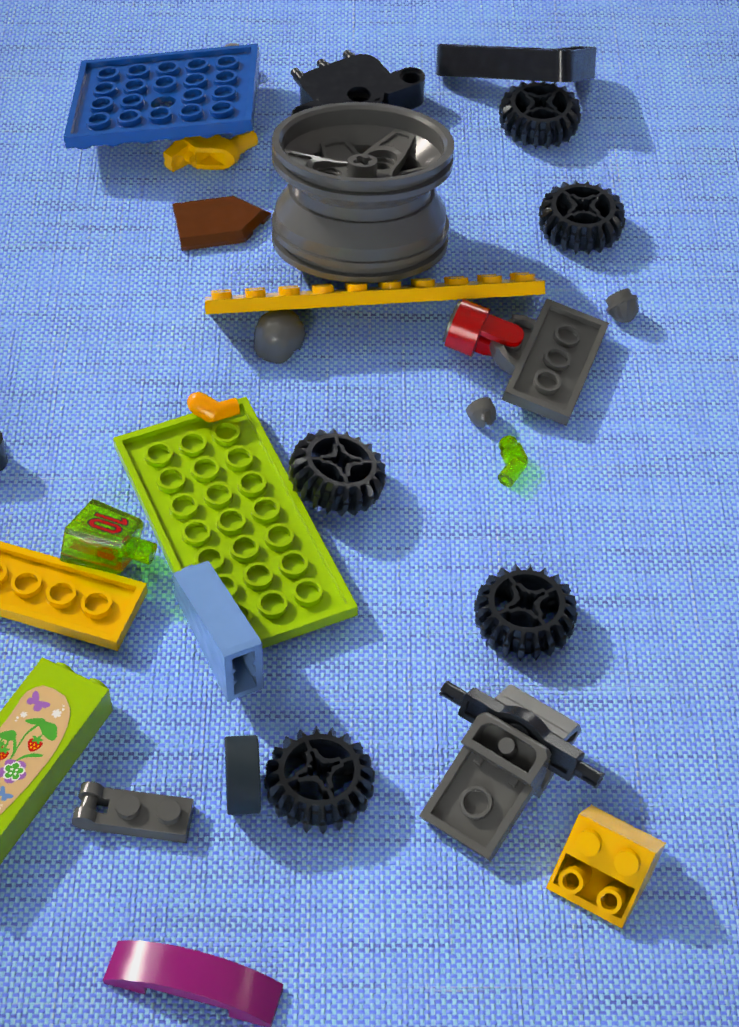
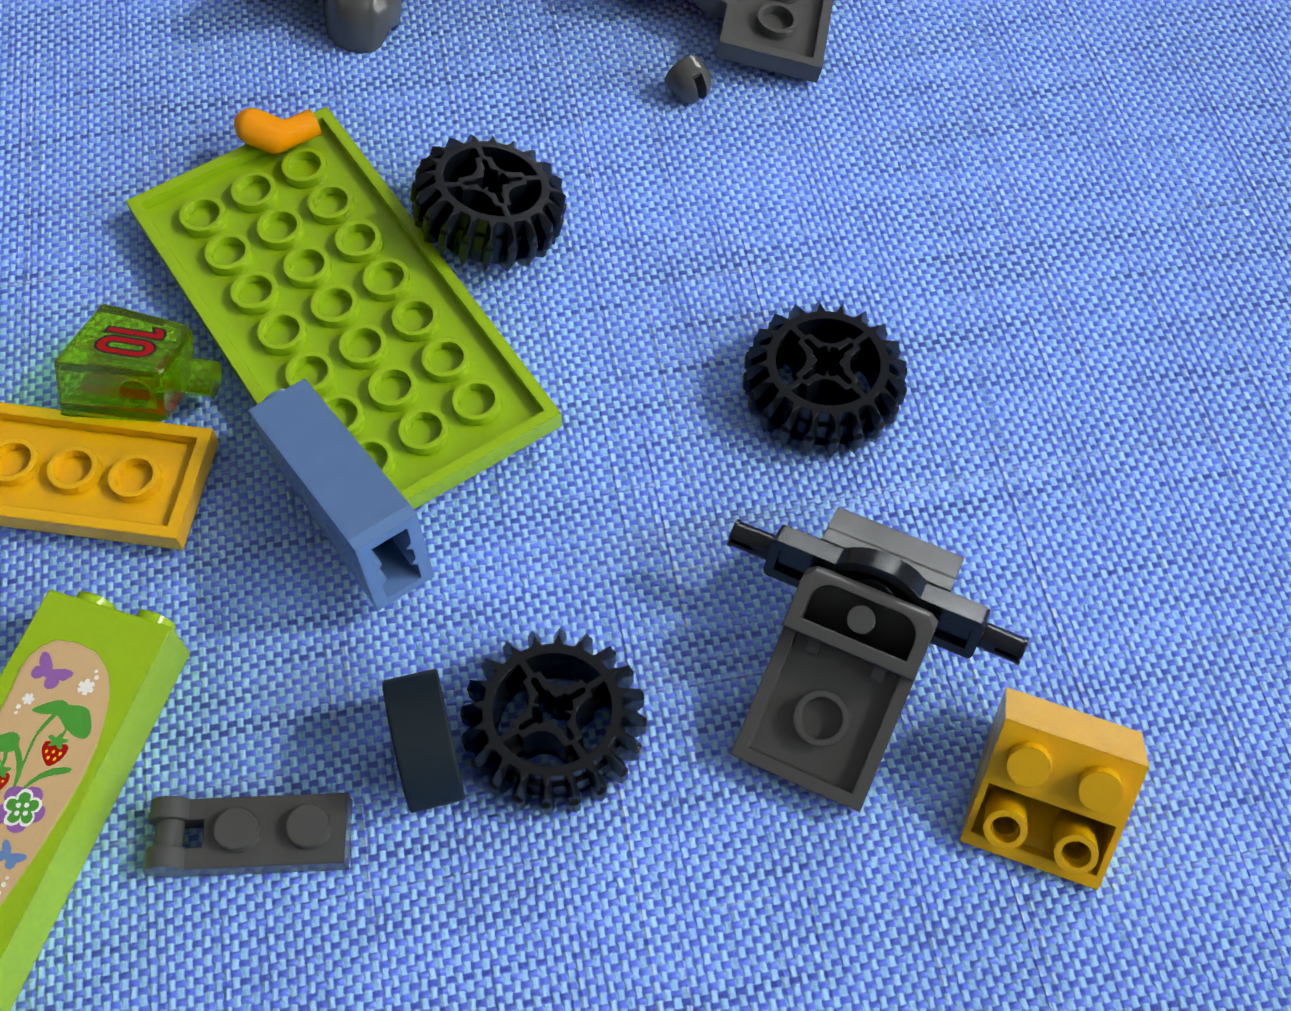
camera: 10 degrees left, 10 degrees up
(514, 459) = (751, 142): clear neon green arm -> none

